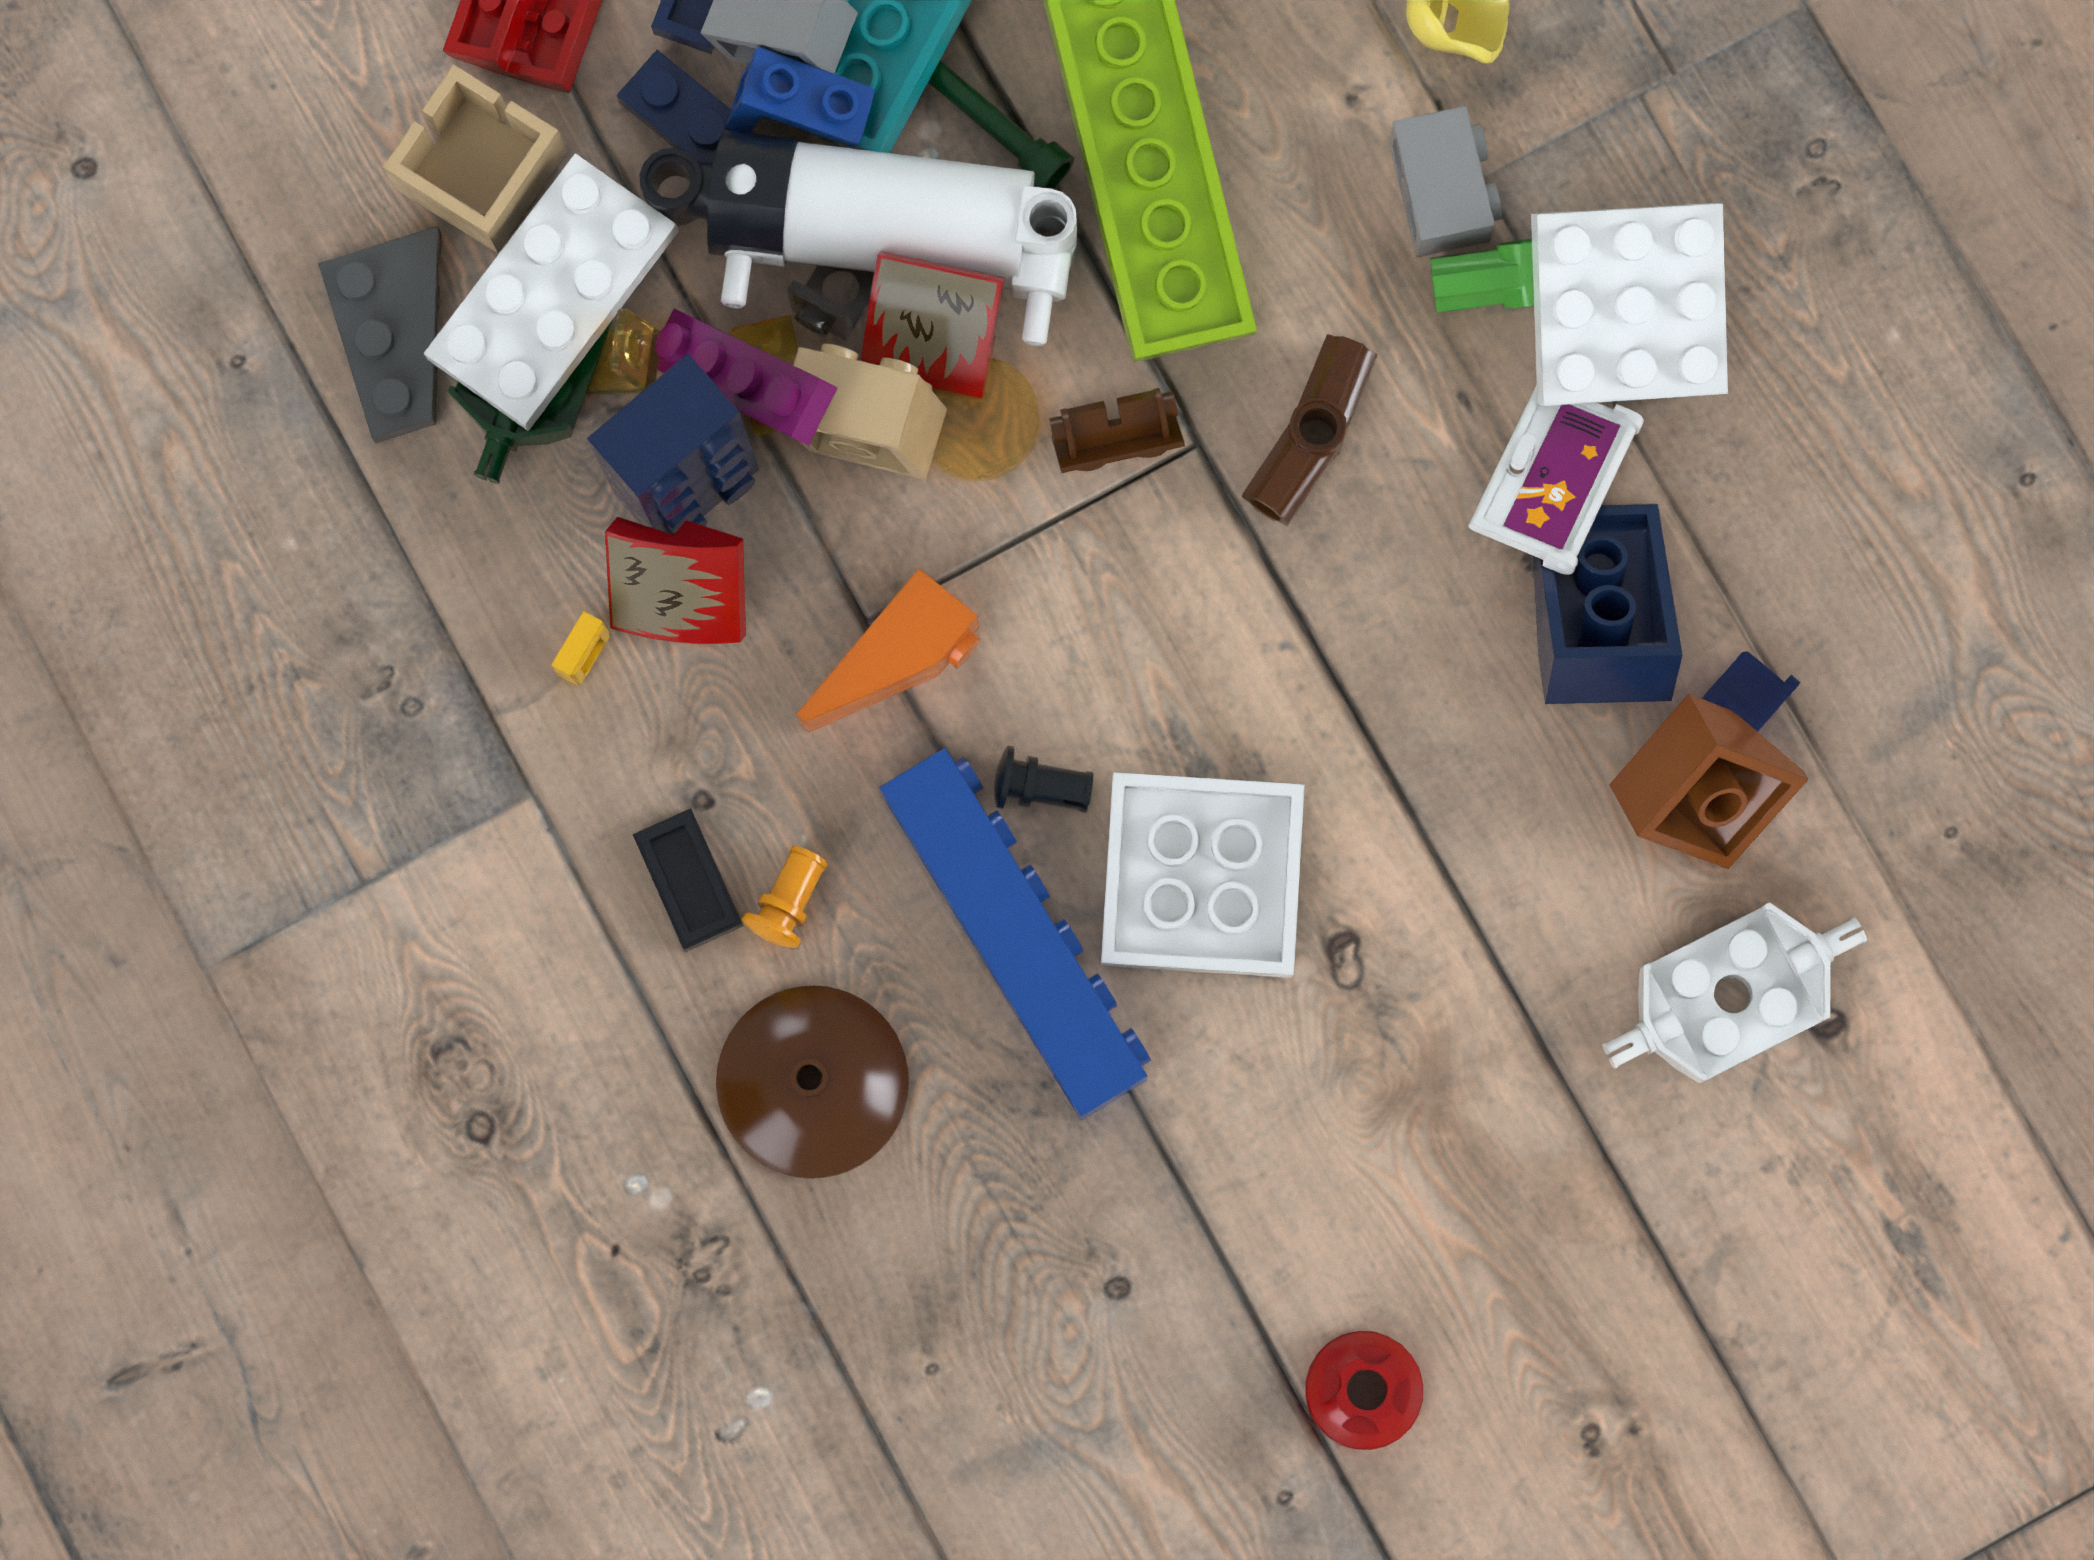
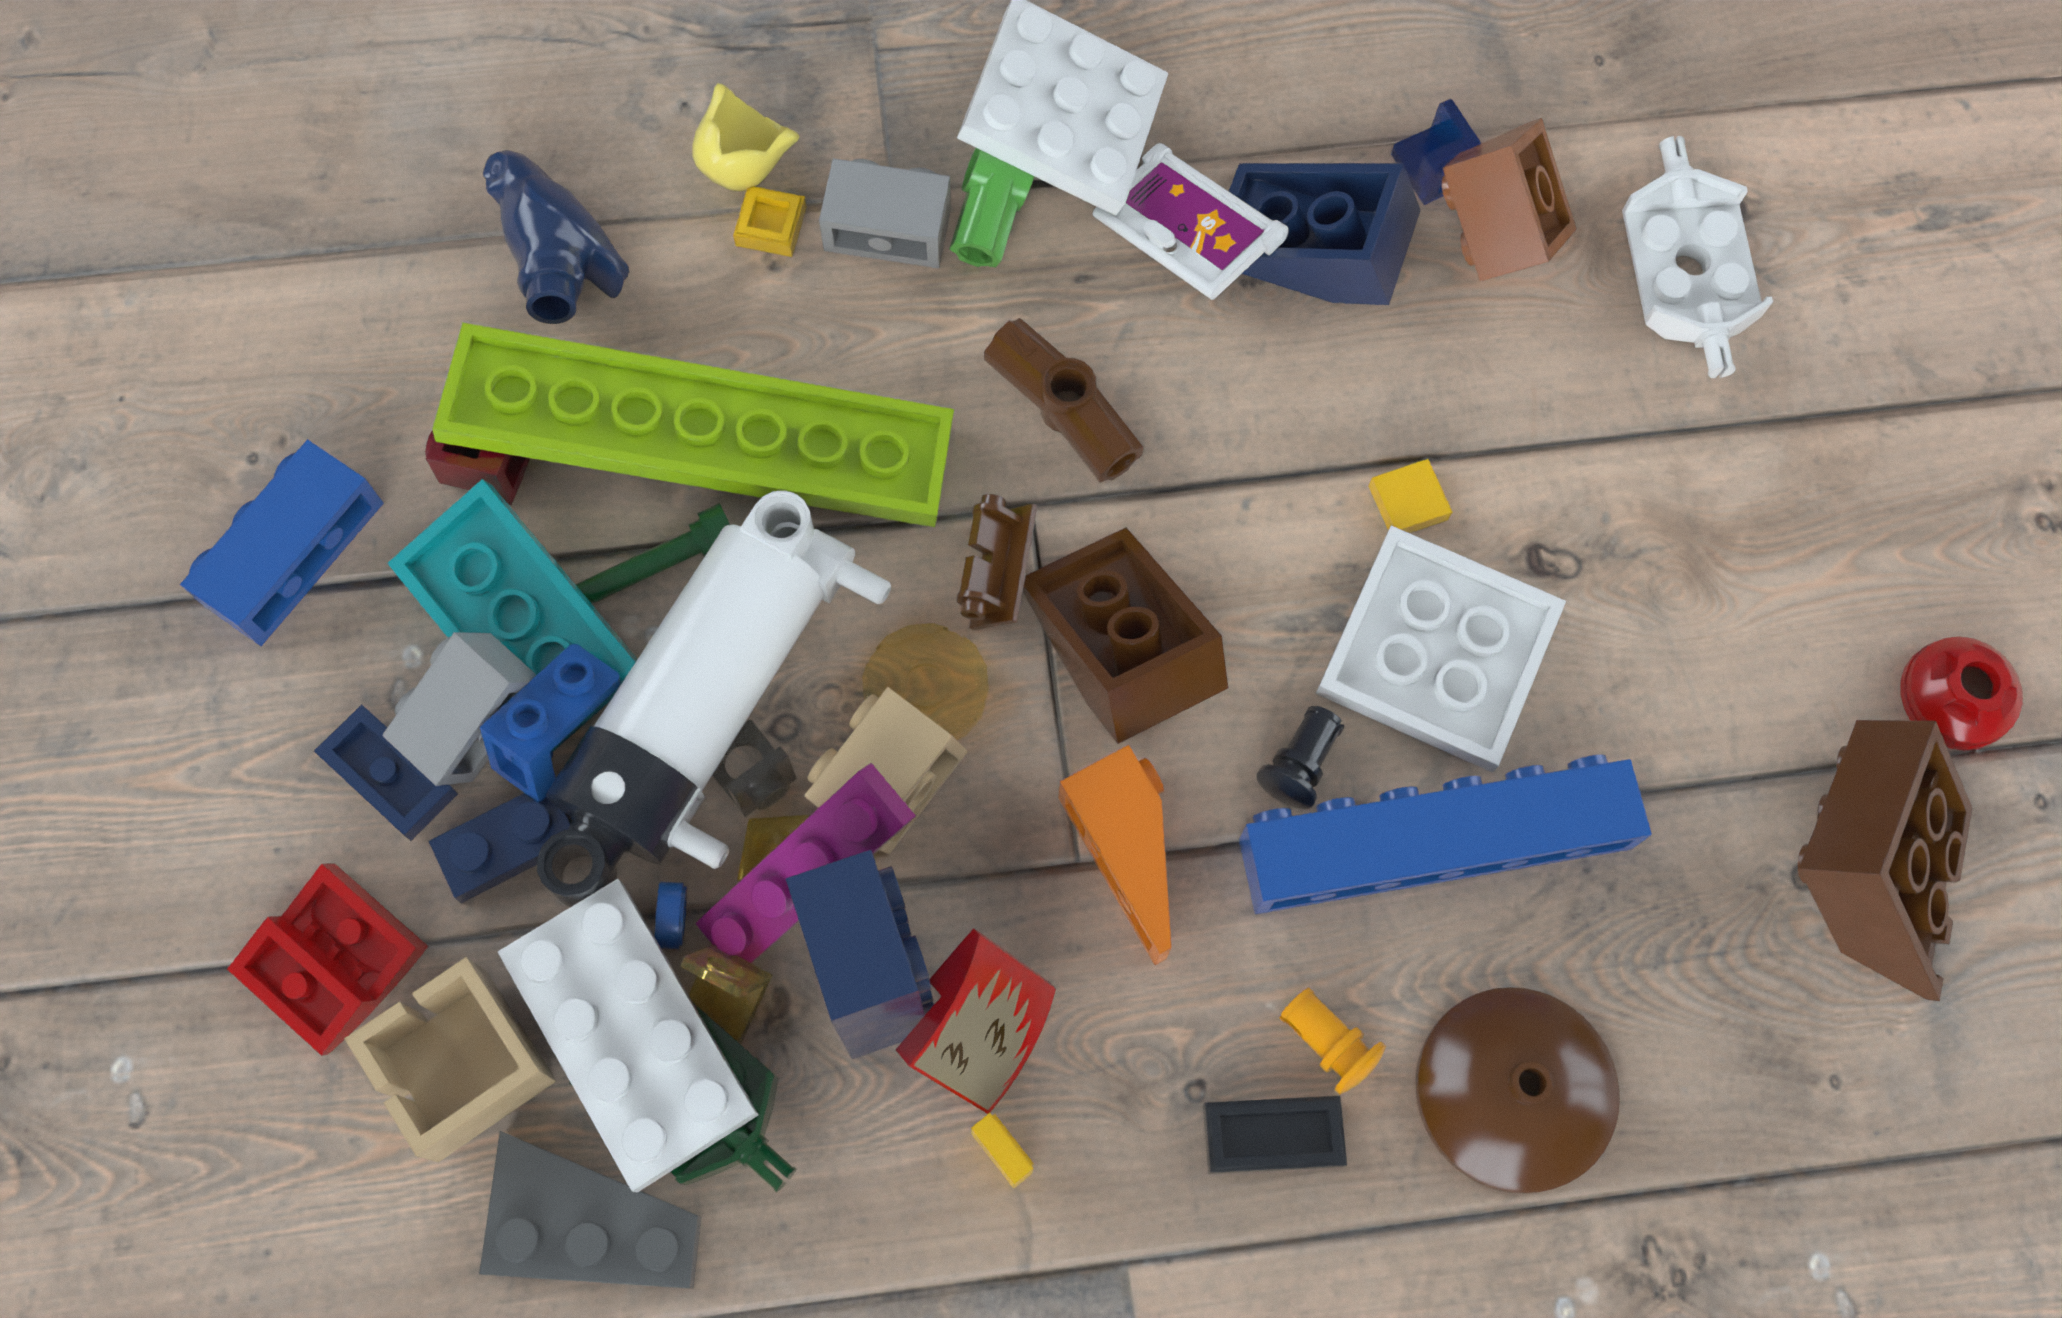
camera: 75 degrees left, 10 degrees down
(672, 284) = (671, 915): none -> blue tile
(933, 320) = (824, 671): slope -> none
(1095, 575) = (1127, 634): none -> reddish brown slope
(1163, 1350) = (1888, 847): none -> reddish brown wedge
(1350, 797) = (1410, 497): none -> yellow tile
(1394, 74) = (770, 221): none -> yellow tile

